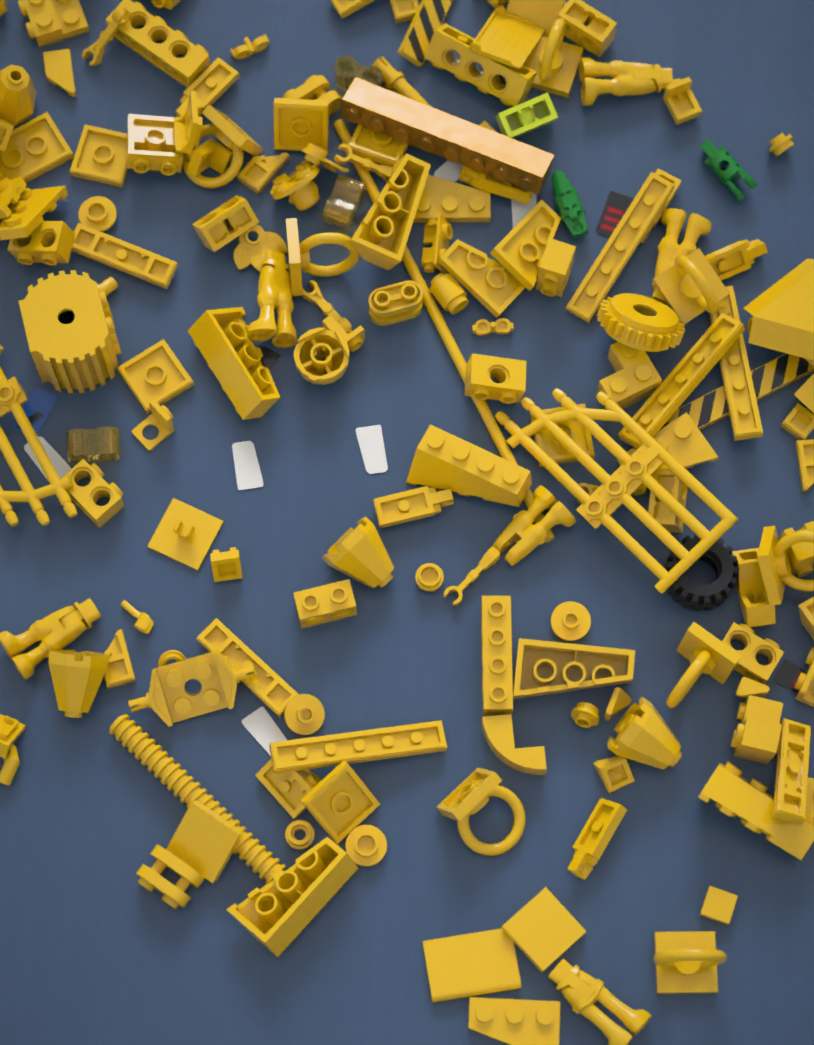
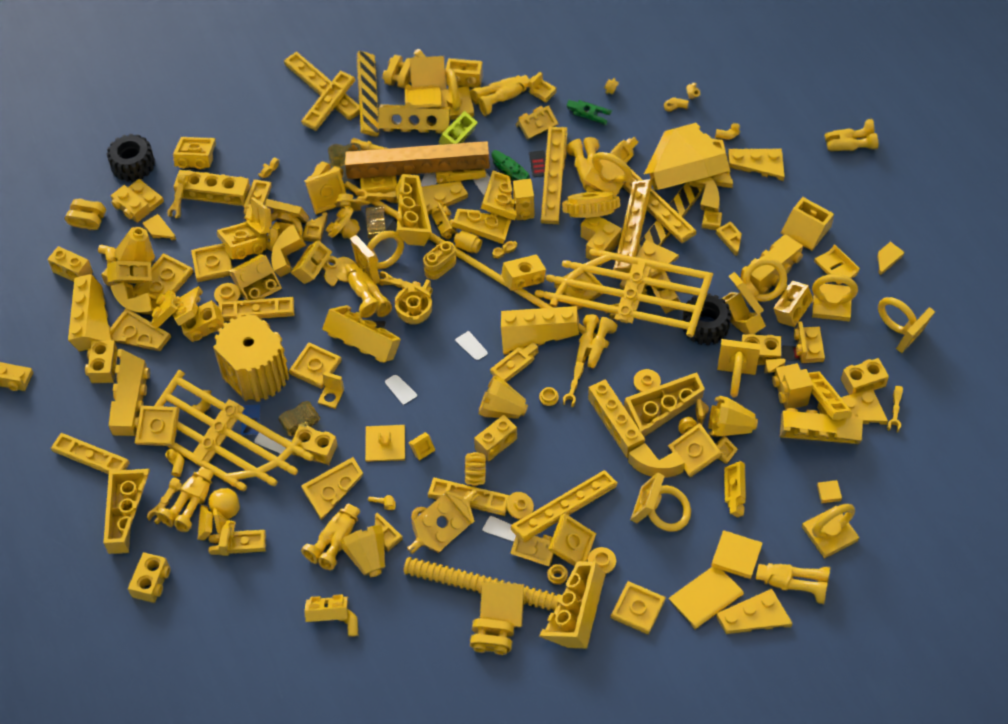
camera: 25 degrees left, 15 degrees down
(84, 563) = (332, 486): none -> yellow wing
(142, 210) = (255, 278): none -> yellow slope
(209, 179) = (287, 243): none -> yellow brick
(273, 635) = (475, 469): none -> yellow gear
(376, 934) = (638, 608): none -> yellow tile
(574, 755) = (695, 449): none -> yellow tile
(645, 152) = (536, 122): none -> yellow bracket

